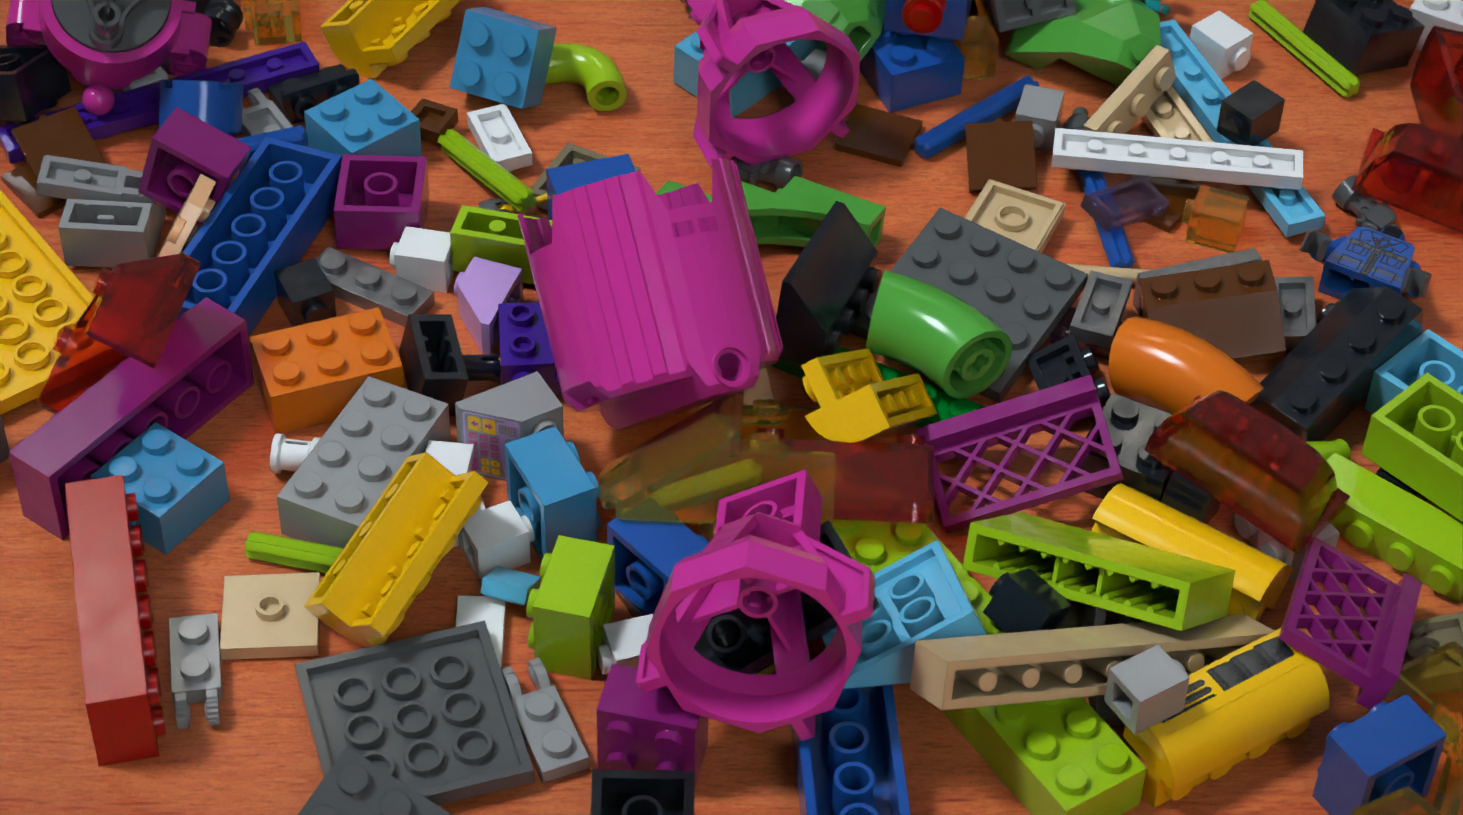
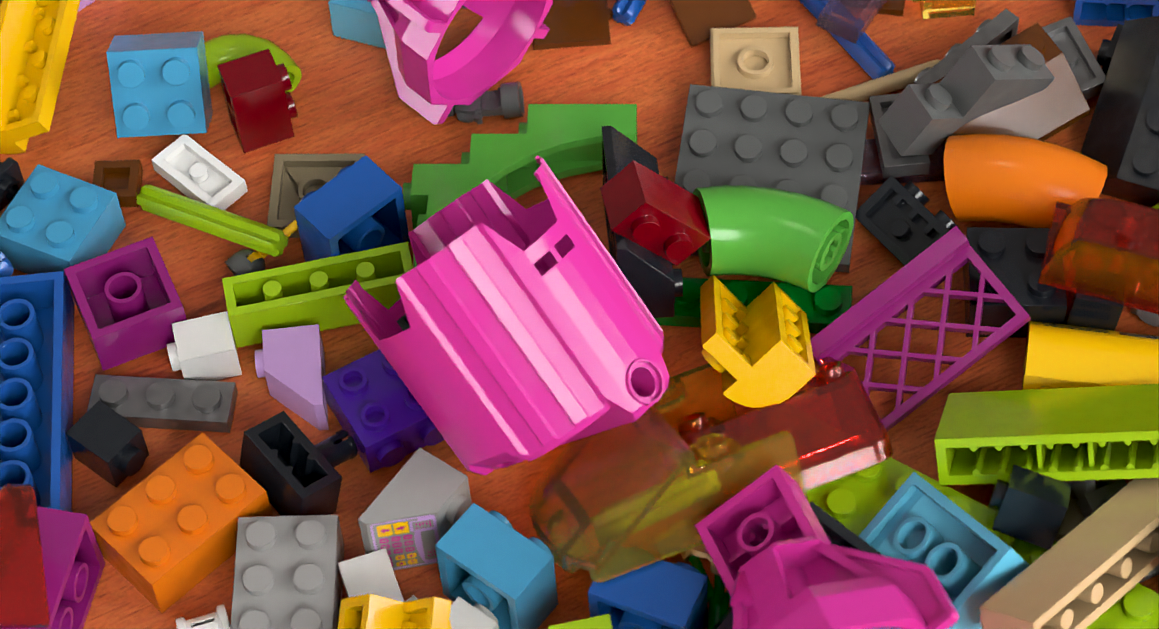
camera: 20 degrees left, 10 degrees up
(573, 96) = (258, 100): none -> dark red brick
(834, 270) = (655, 213): none -> dark red brick
(1179, 280) = (976, 85): none -> dark grey arch

